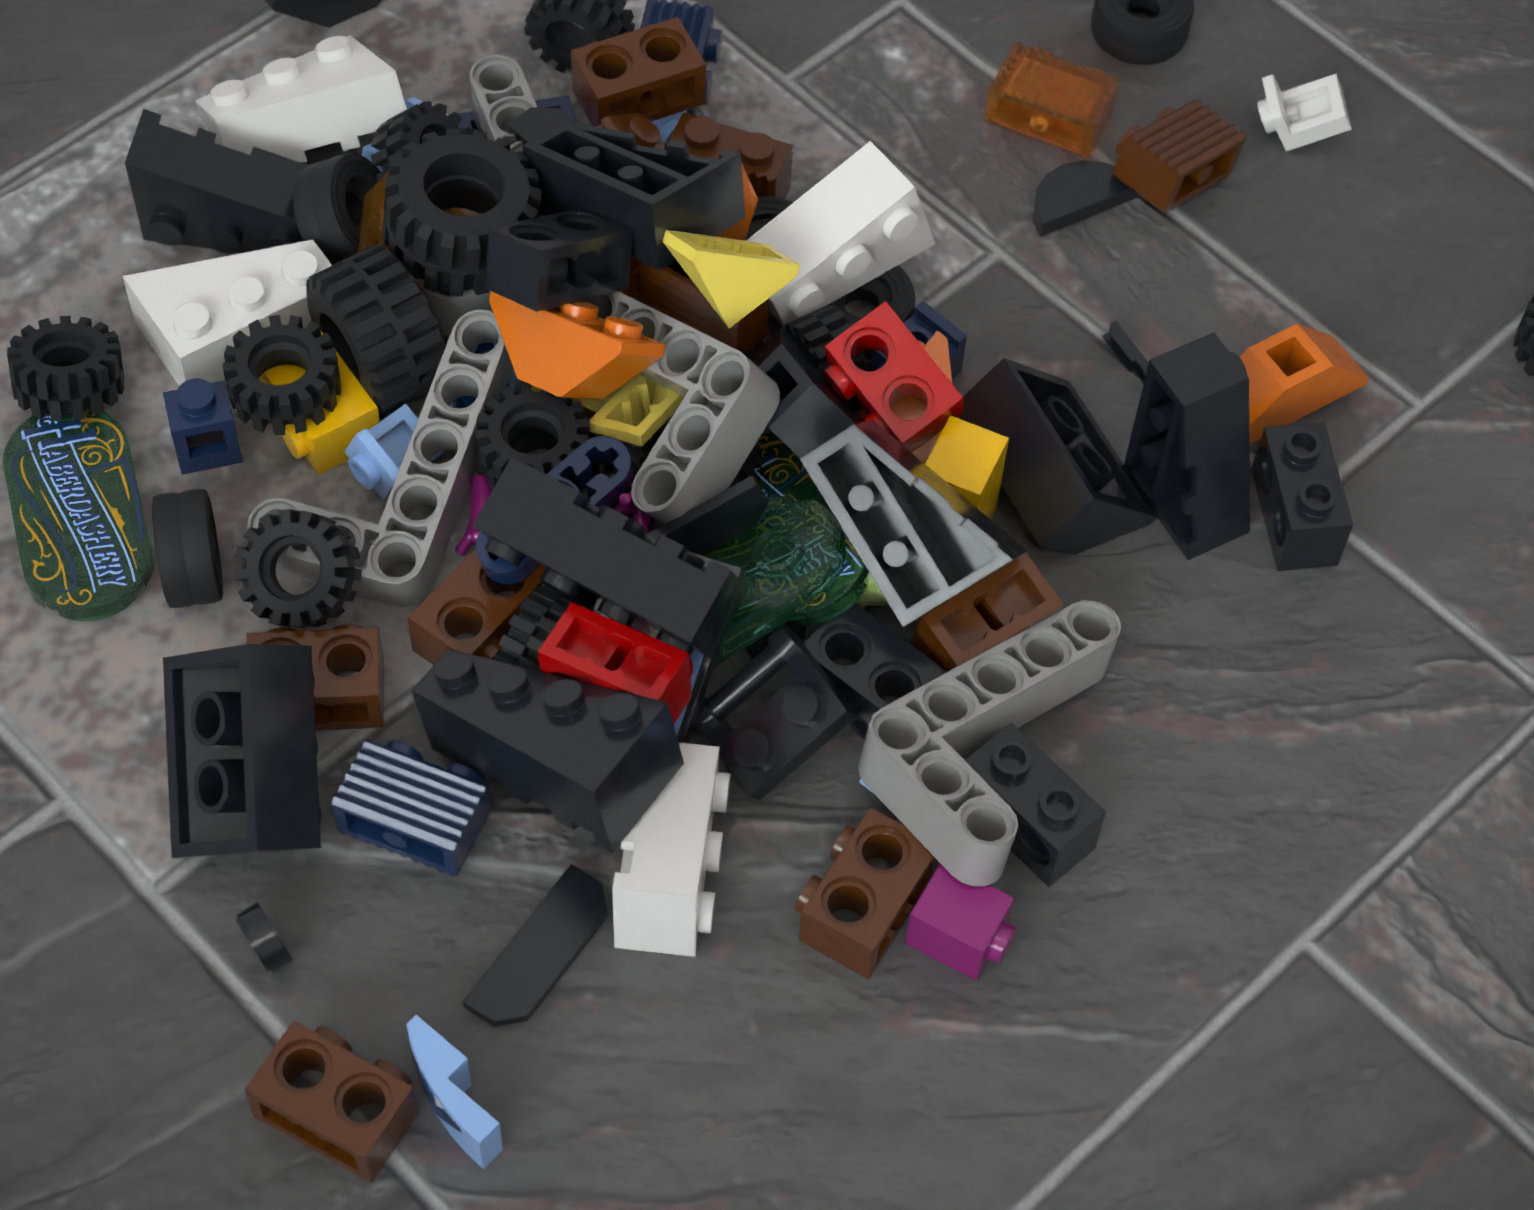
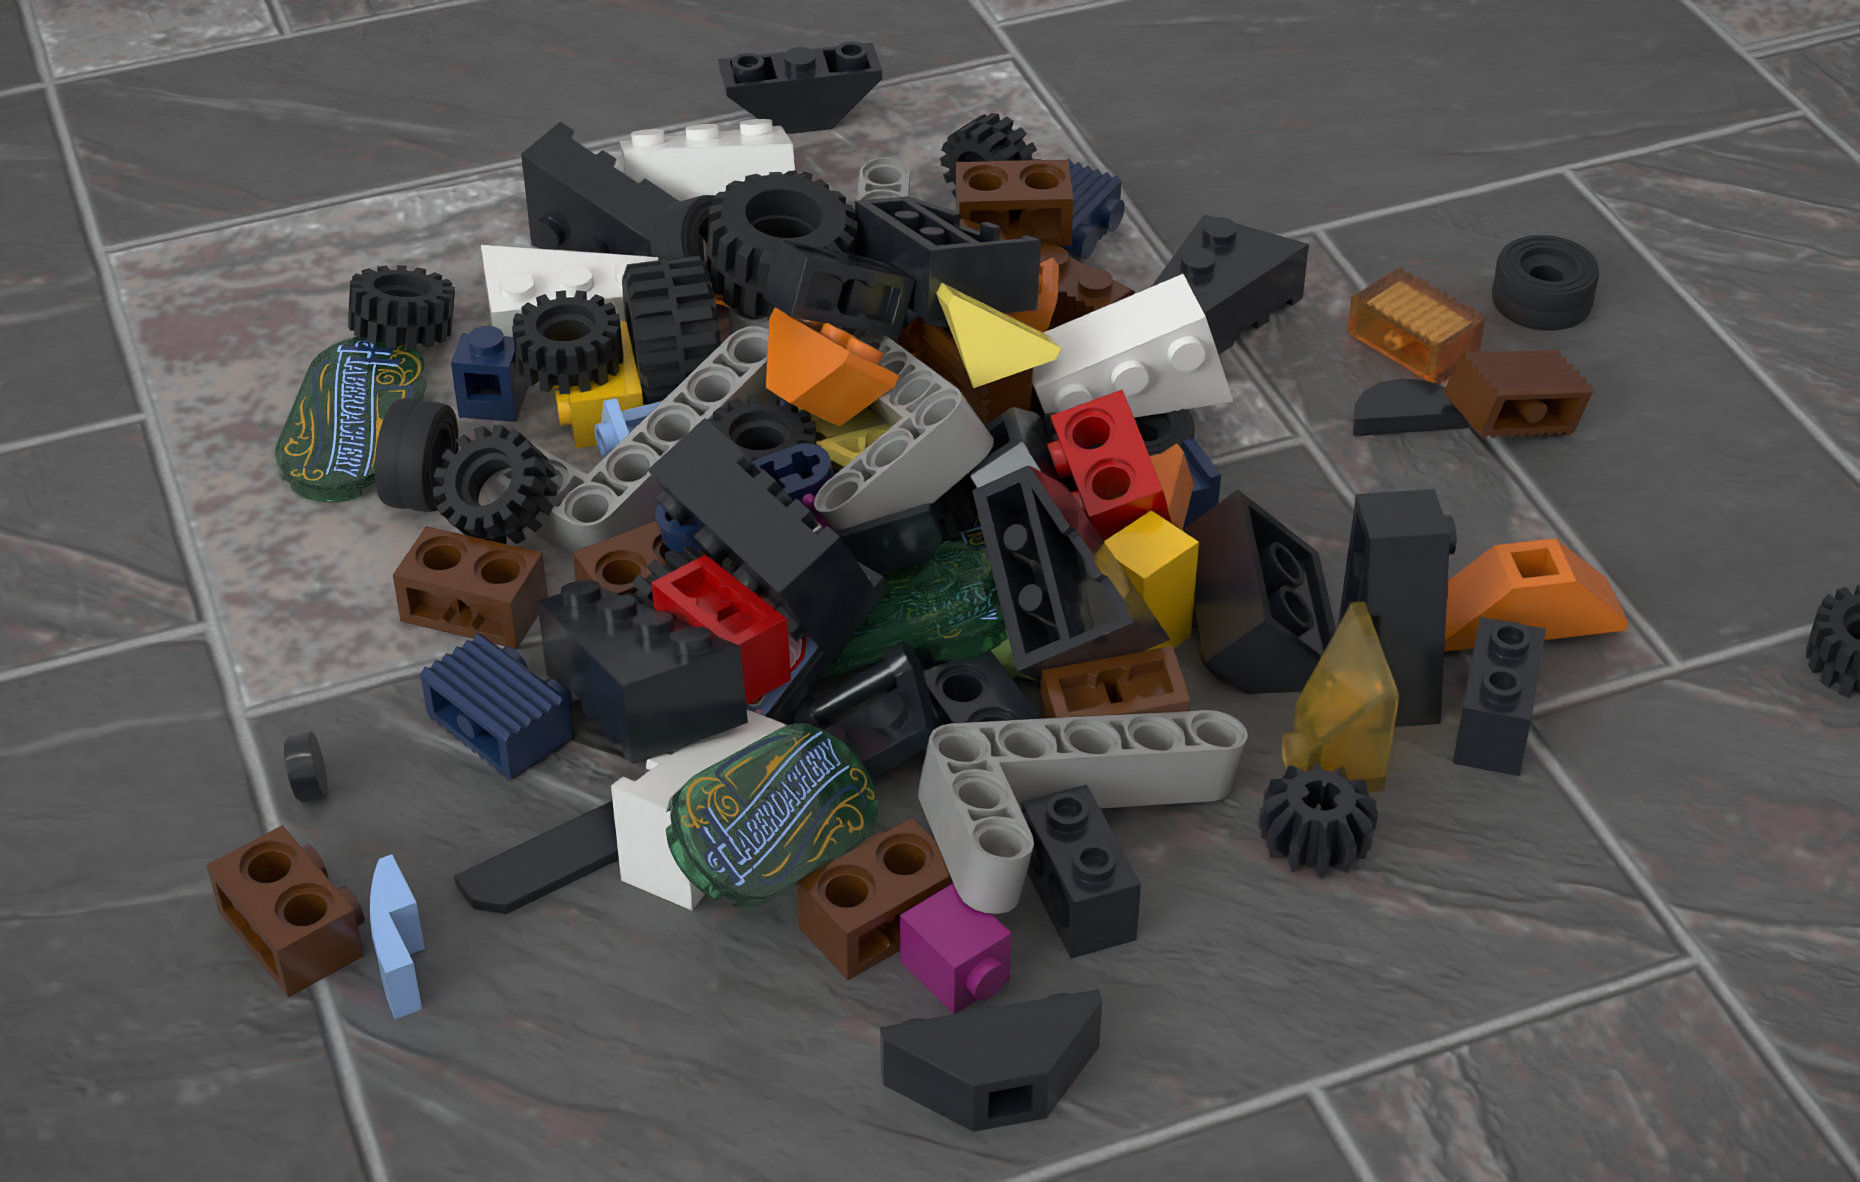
camera: 25 degrees right, 15 degrees down
(242, 750) = (368, 609): black slope -> none
(758, 858) = (771, 815): none -> clear green tile
(860, 96) = (1238, 274): none -> black wedge
(1045, 1024) = (994, 1061): none -> black slope
(1192, 563) = (1347, 706): none -> clear yellow slope
(1204, 677) = (1318, 819): none -> black gear
(1304, 112) = (1669, 395): white bracket -> none

